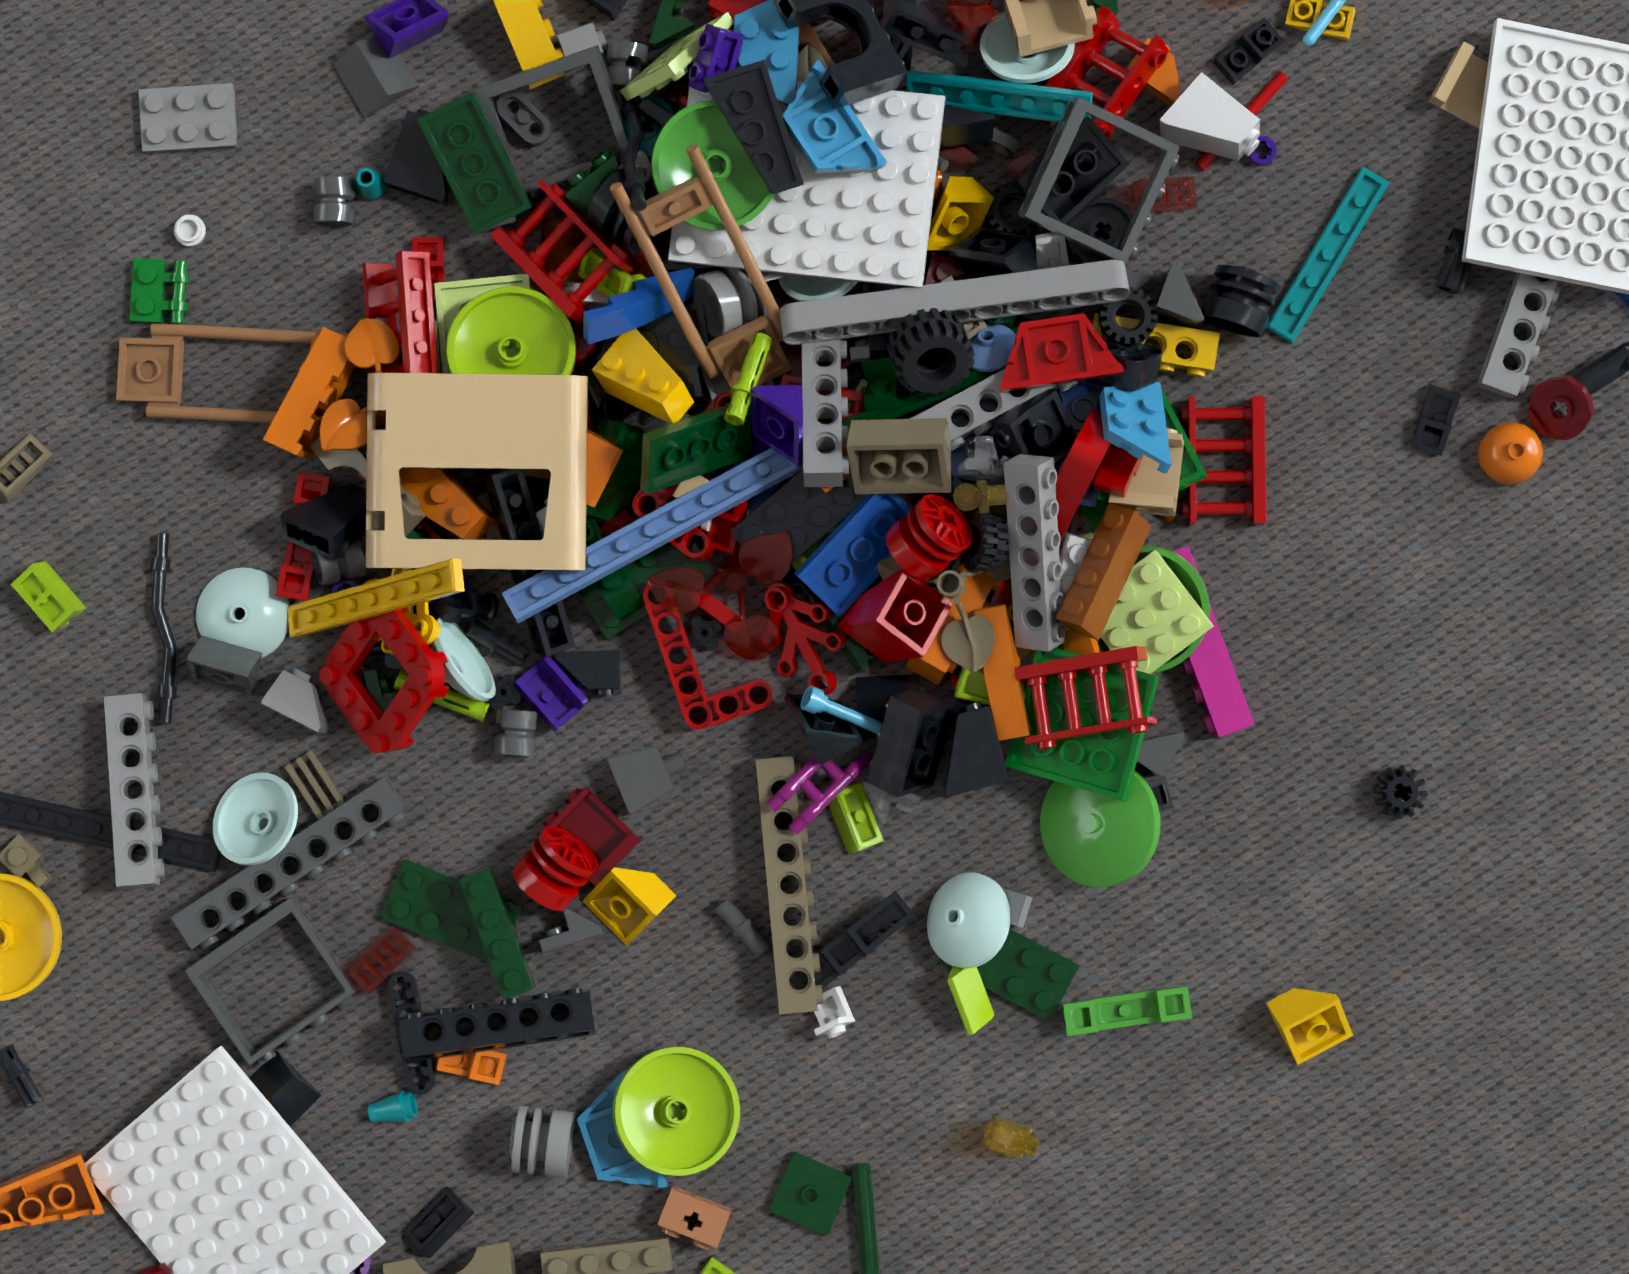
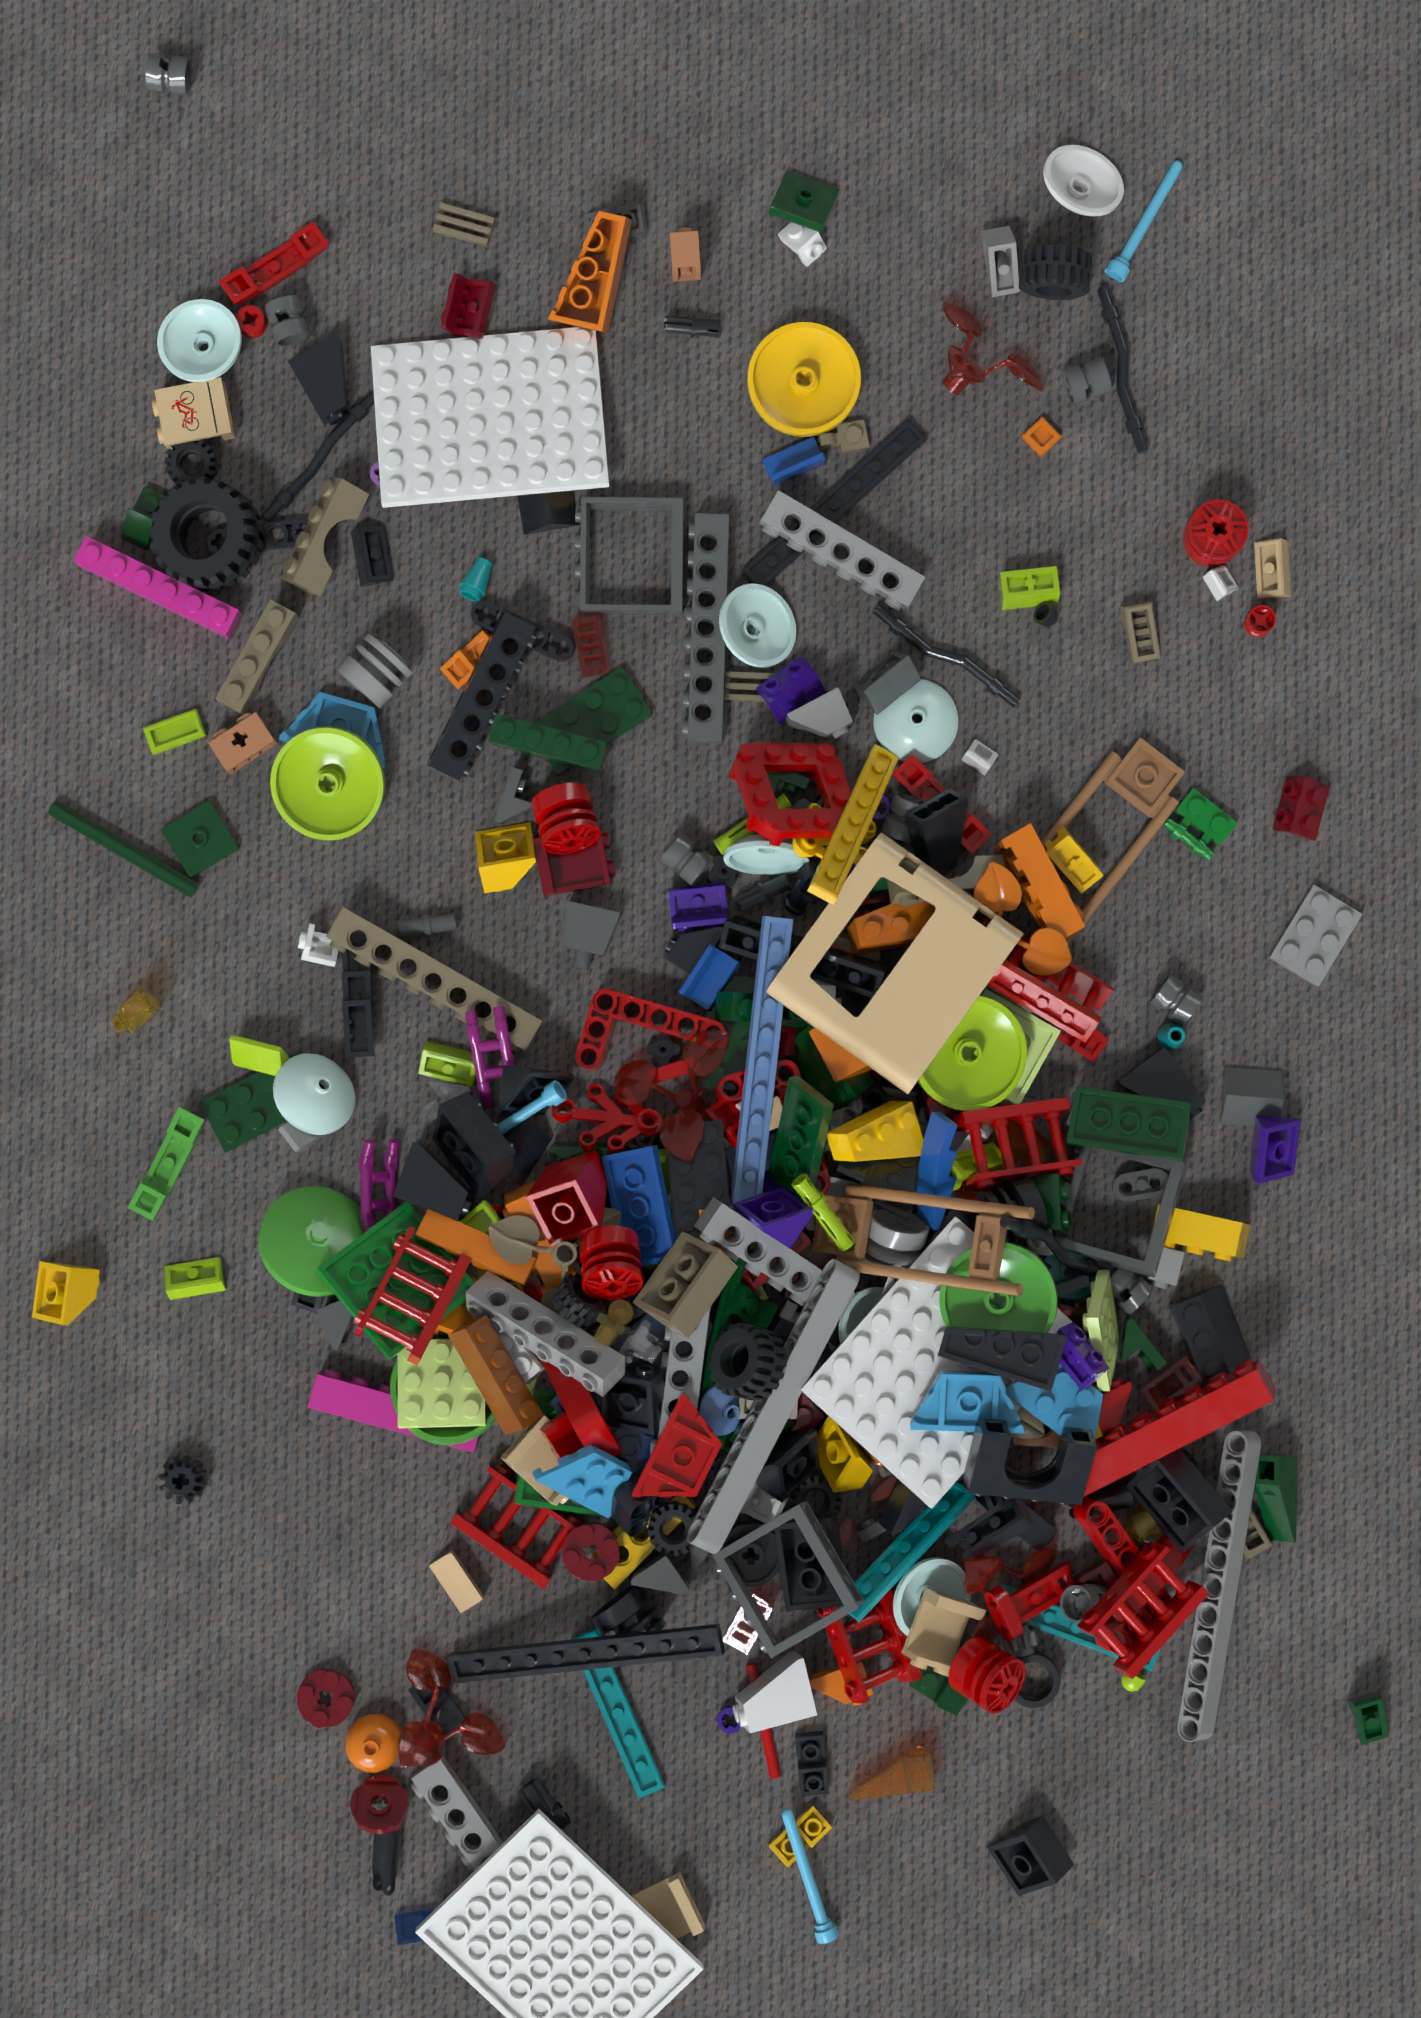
camera: 130 degrees right, 0 degrees up
(66, 564) = (1045, 614): none -> black hinge
(79, 211) = (1301, 807): none -> dark red bracket
(80, 894) = (793, 461): none -> blue panel
(189, 230) = (1229, 878): white plate -> none
(236, 533) = (979, 757): none -> white slope
(271, 381) = (1073, 860): none -> yellow hinge
(293, 747) = (791, 689): none -> dark purple bracket
(608, 634) = (709, 977): none -> blue panel
(1008, 817) = (368, 1177): none -> magenta piece
(1212, 362) = (586, 1535): none -> dark red plate
(1212, 912) = (194, 1278): none -> lime slope
(1293, 315) = (587, 1653): none -> black plate
(1314, 481) = (456, 1581): none -> tan slope
(1475, 408) = (422, 1741): none -> clear red plant
(1509, 540) = (341, 1704): none -> dark red plate

